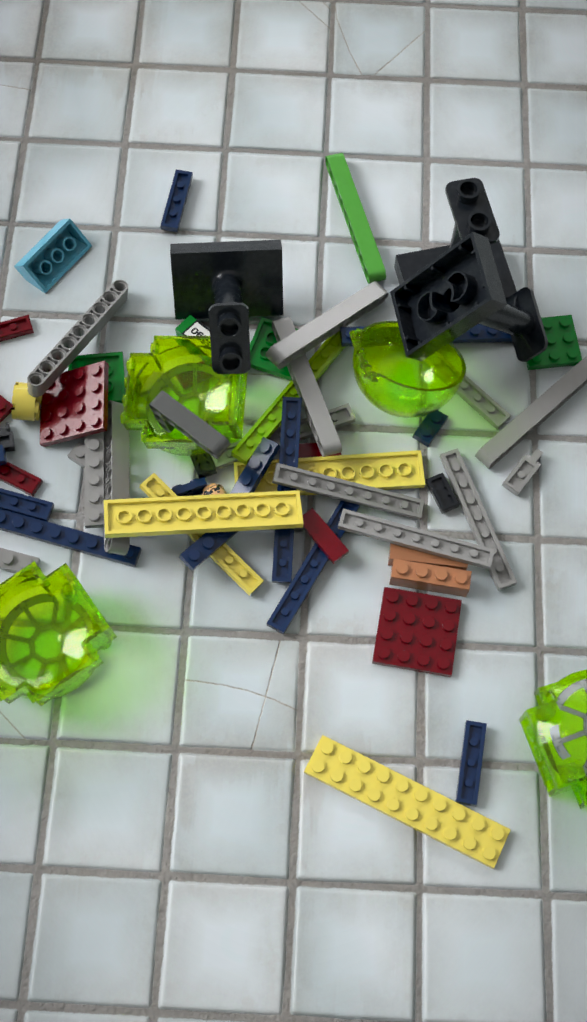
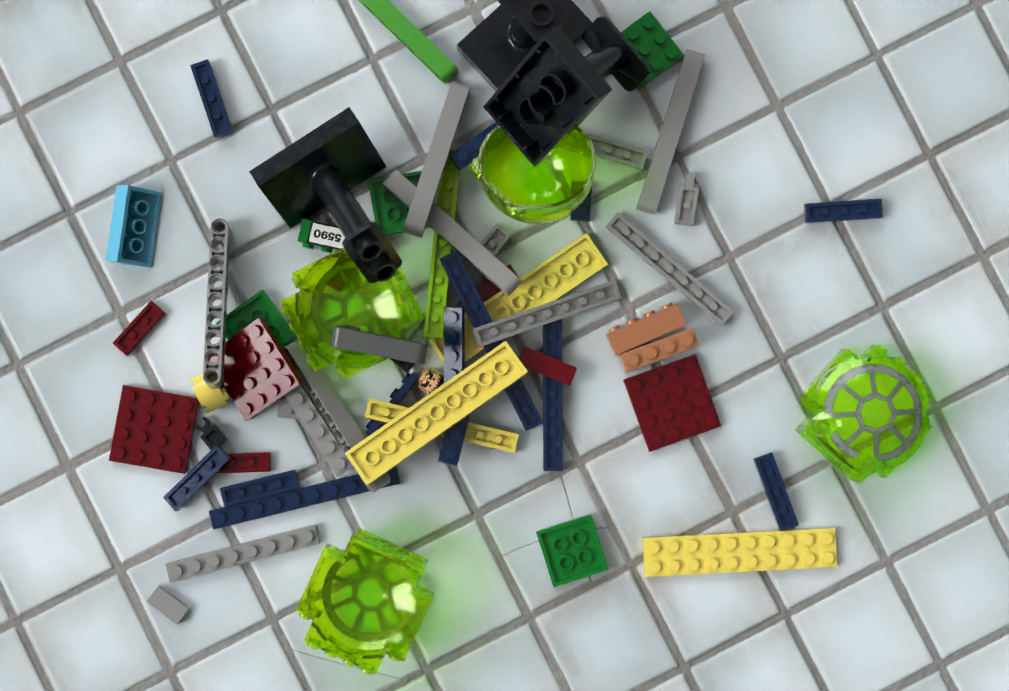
camera: 30 degrees left, 20 degrees up
(250, 708) = (572, 550): none -> green plate
(416, 539) = (630, 326): light grey plate -> none
(442, 493) = (626, 262): black plate -> none

